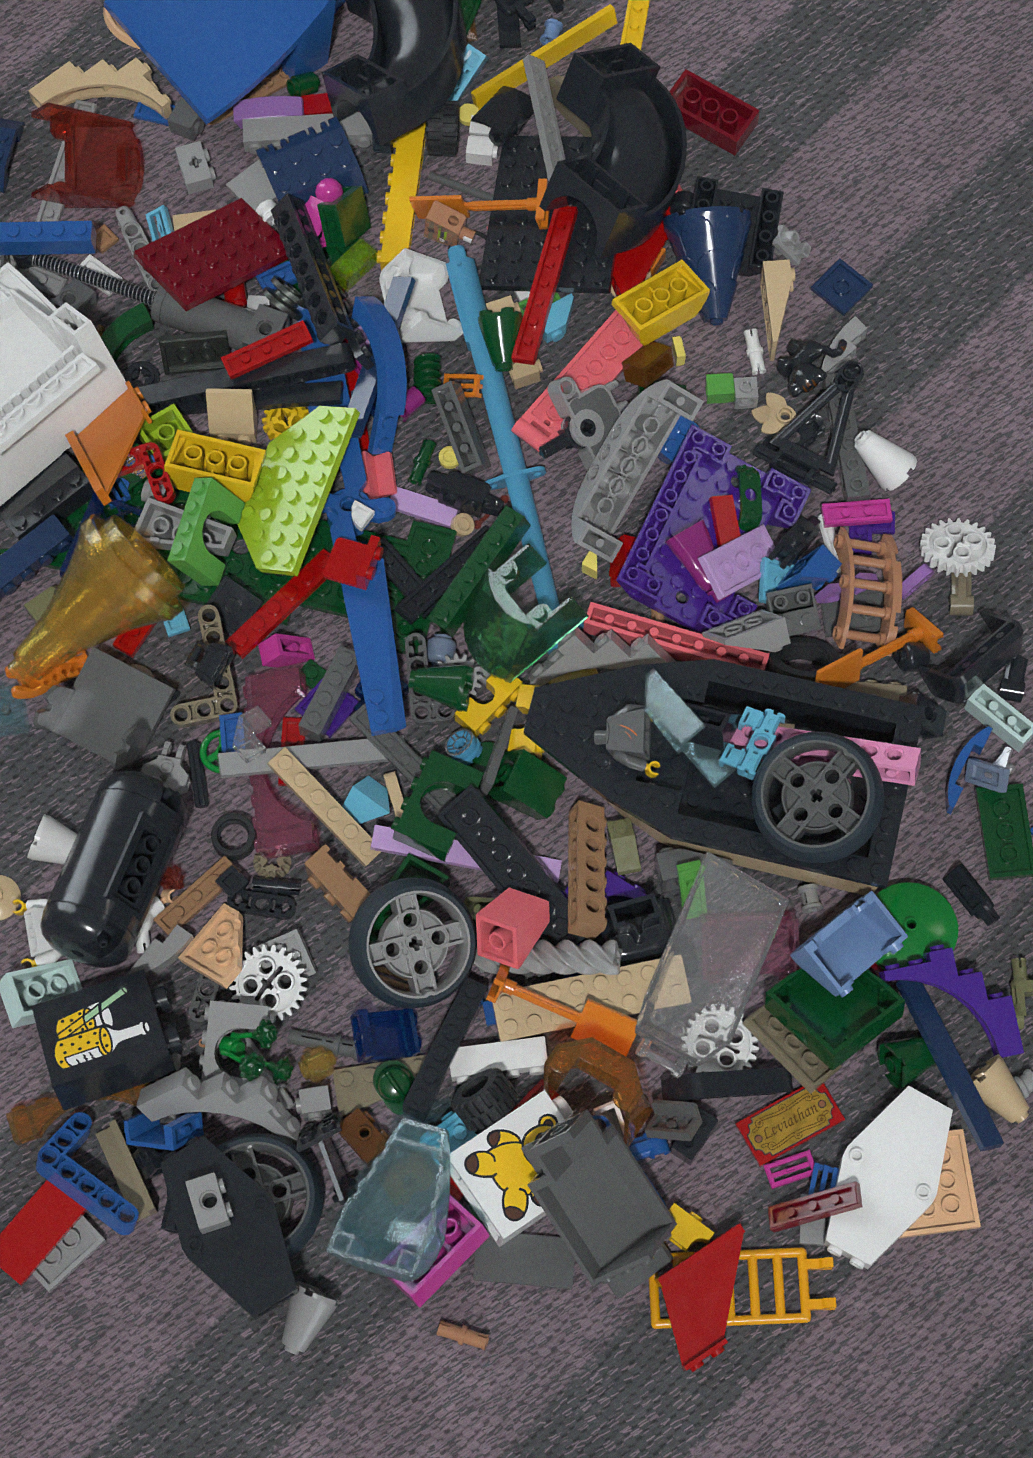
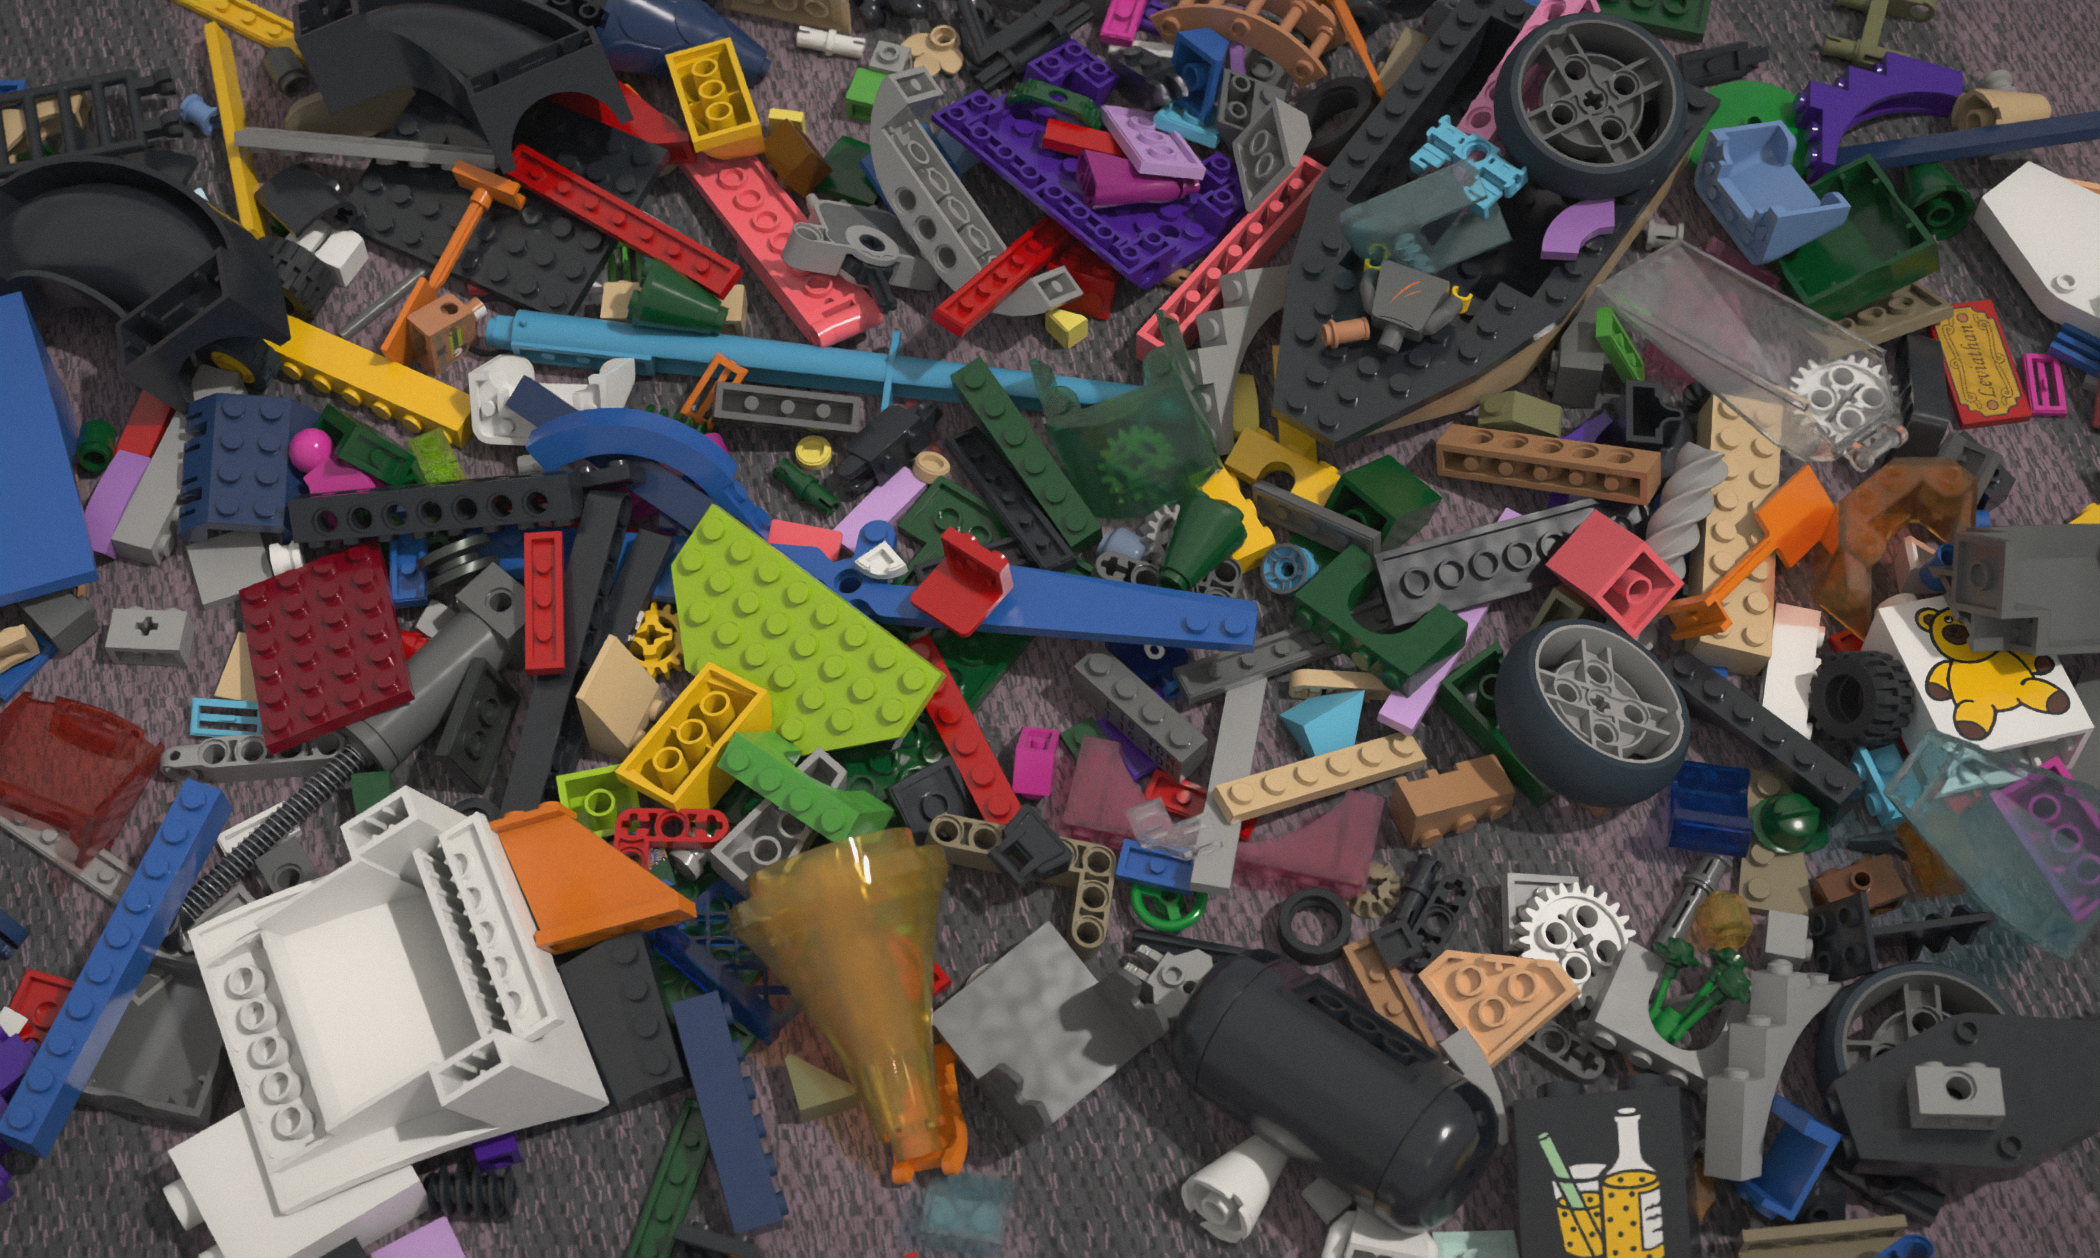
camera: 70 degrees left, 10 degrees down
(581, 506) = (1002, 276): none -> red tile
(598, 709) = (1345, 331): none -> nougat pin
(736, 822) = (1576, 226): none -> medium lavender tile

